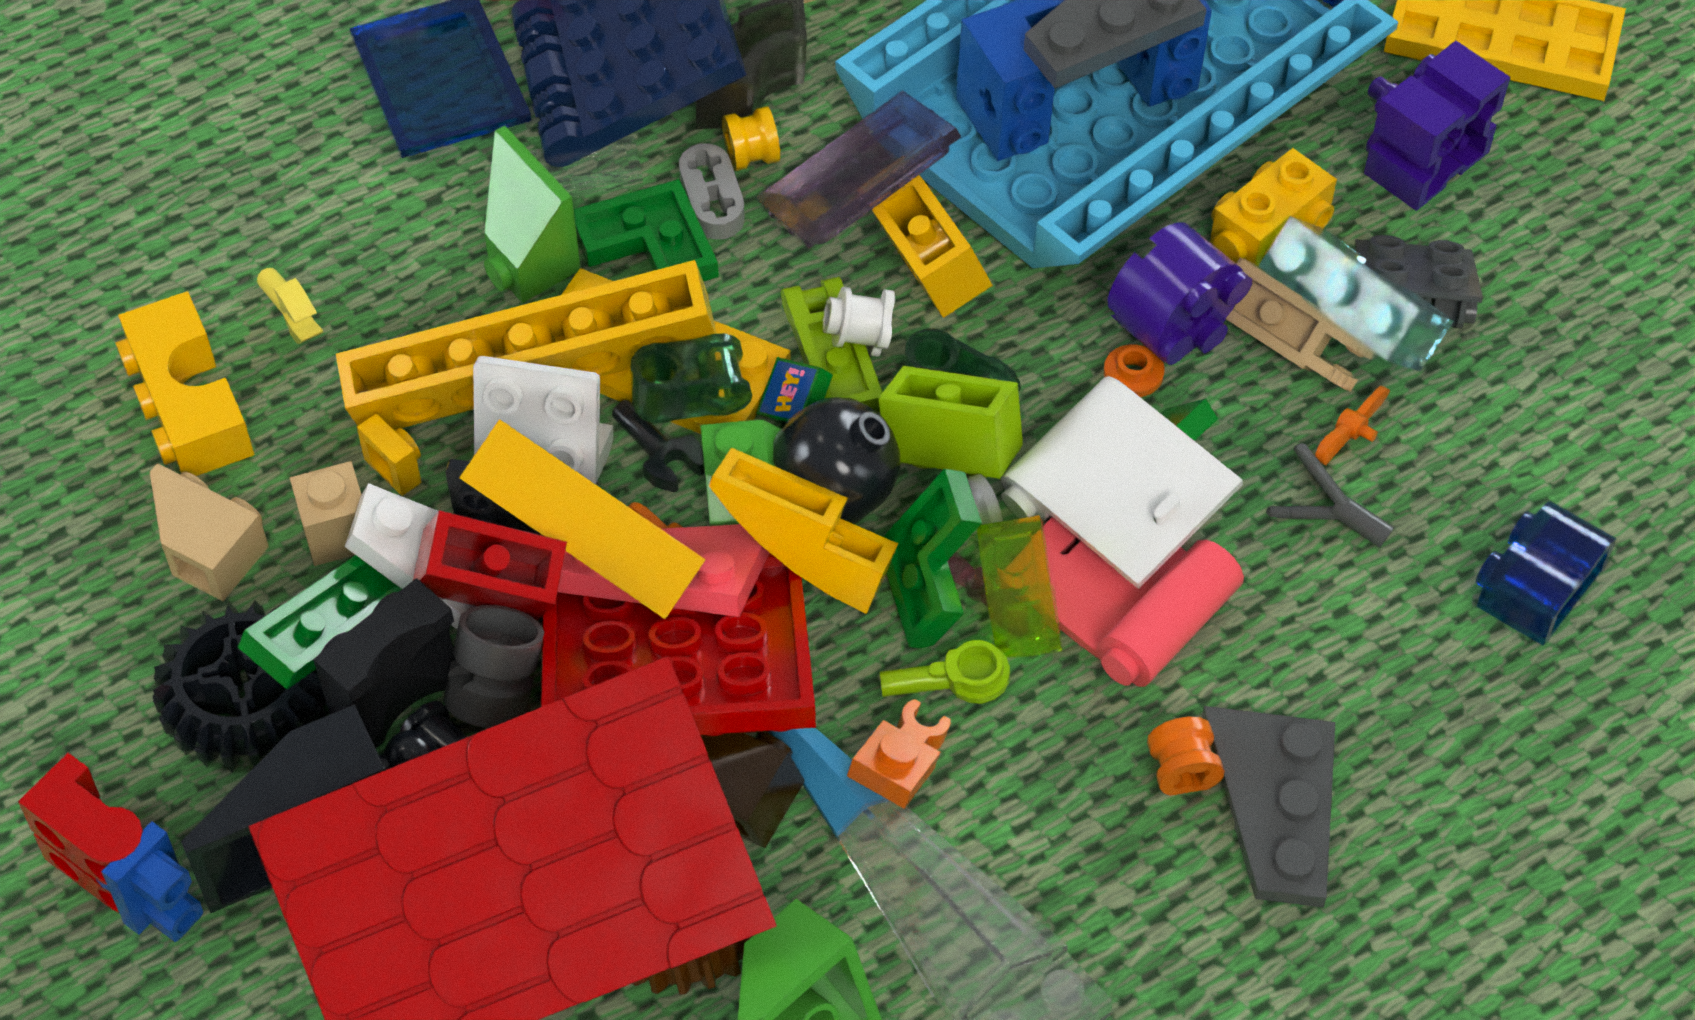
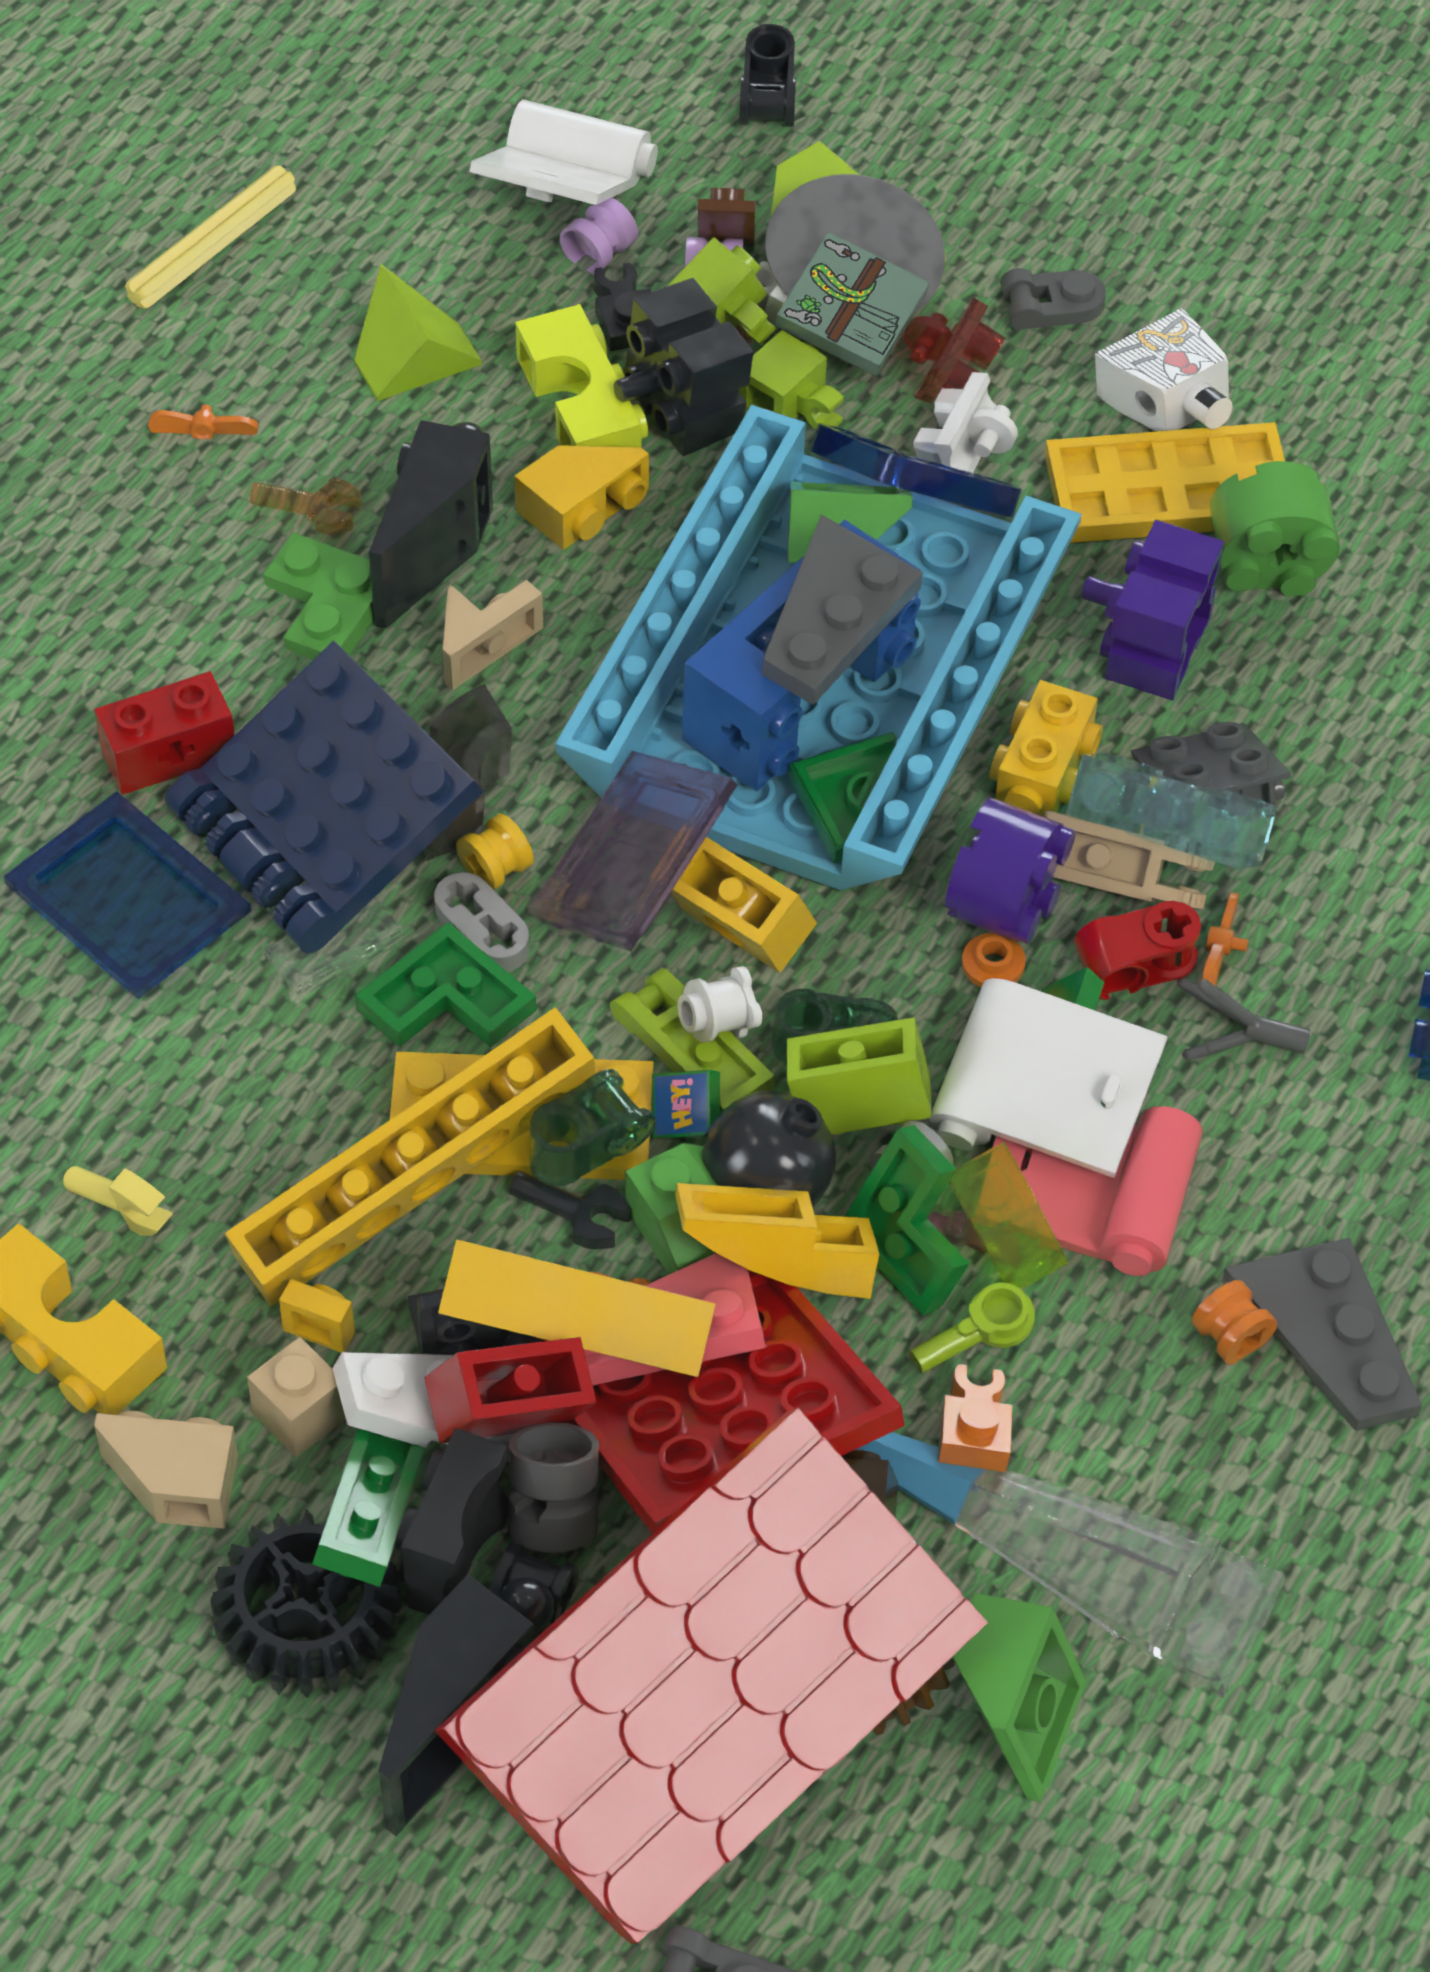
camera: 25 degrees left, 0 degrees up
(110, 851) = (288, 1814): hips -> none
(527, 222) = (328, 1021): bright green slope -> none
(548, 406) = (469, 1204): white bracket -> none
(1064, 171) = (838, 785): none -> green tile
(1266, 405) = (1133, 951): none -> red piece
(1575, 91) = (1275, 529): none -> bright green brick

